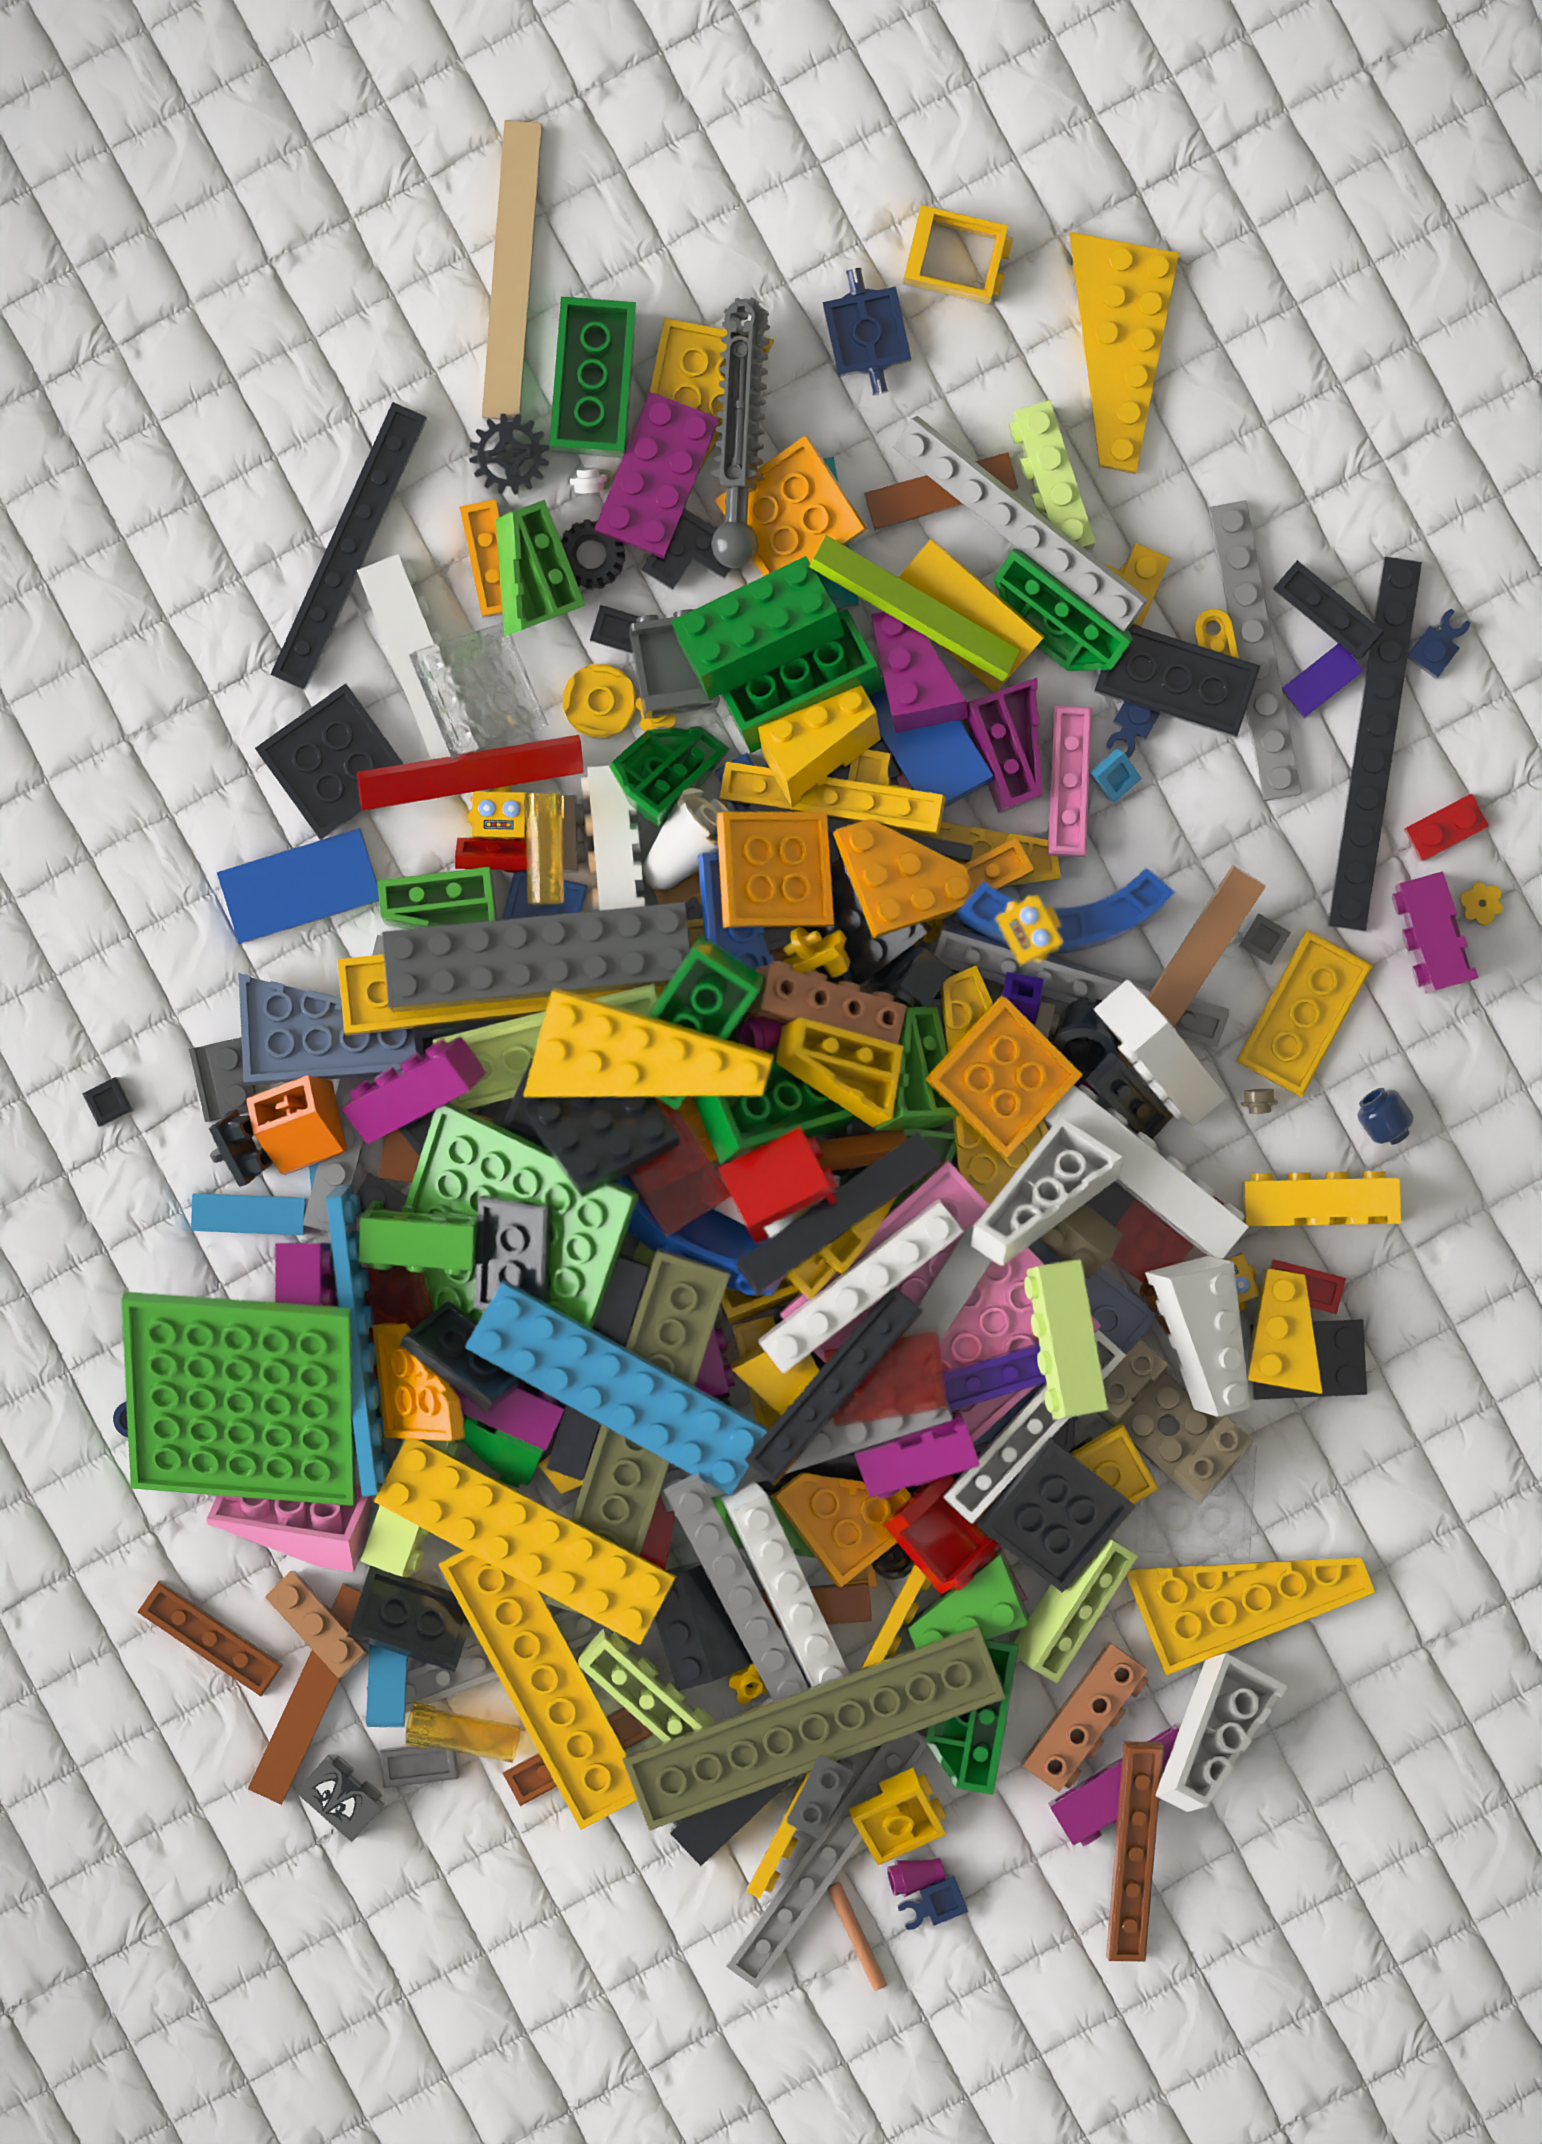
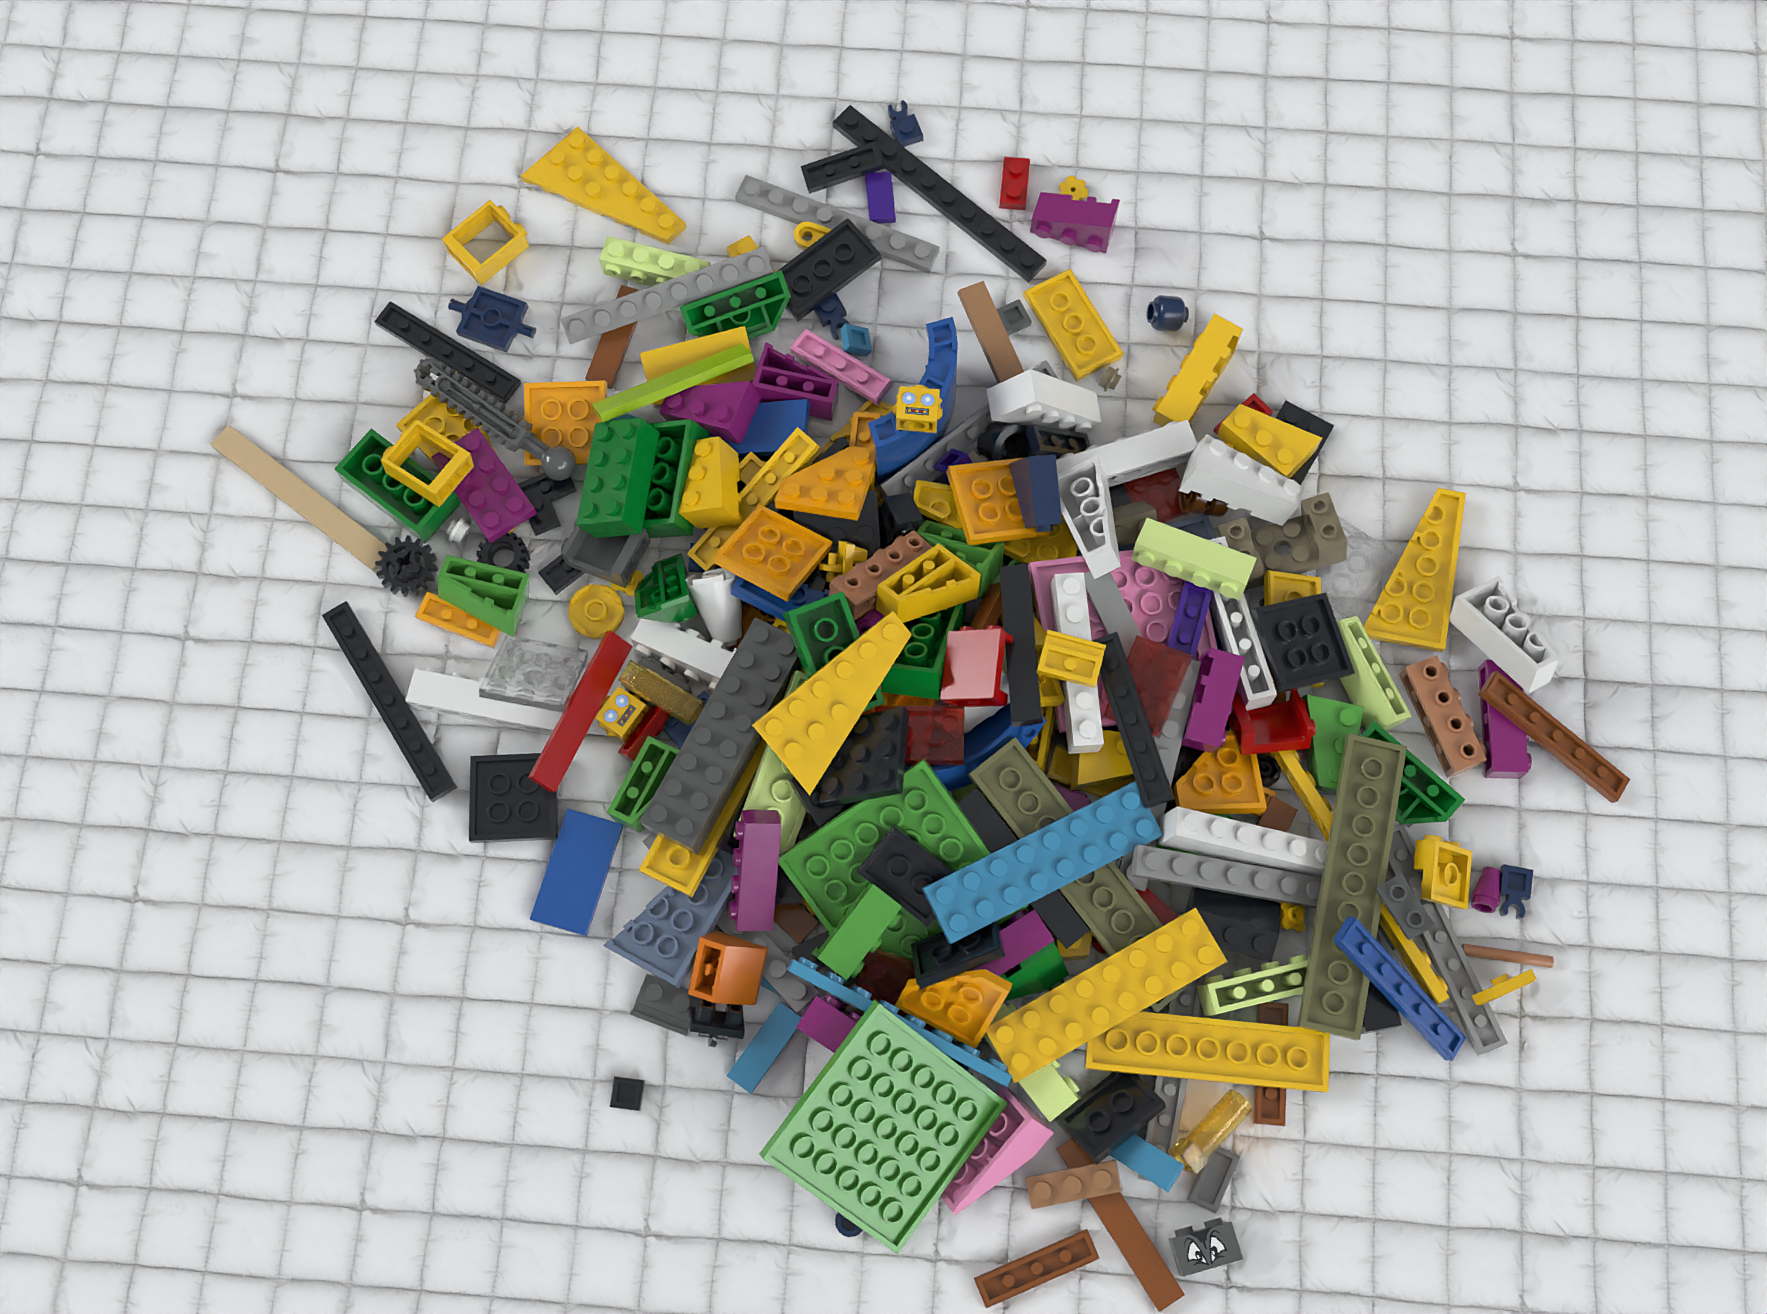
camera: 55 degrees left, 15 degrees down
(632, 440) = (446, 480): none -> yellow window
(734, 1841) = (1399, 988): none -> blue tile
(794, 307) = (449, 351): none -> black tile
(814, 1950) = (1503, 985): none -> yellow plate
(848, 1282) = (1071, 659): none -> yellow plate
(1036, 1116) = (1037, 491): none -> dark blue slope

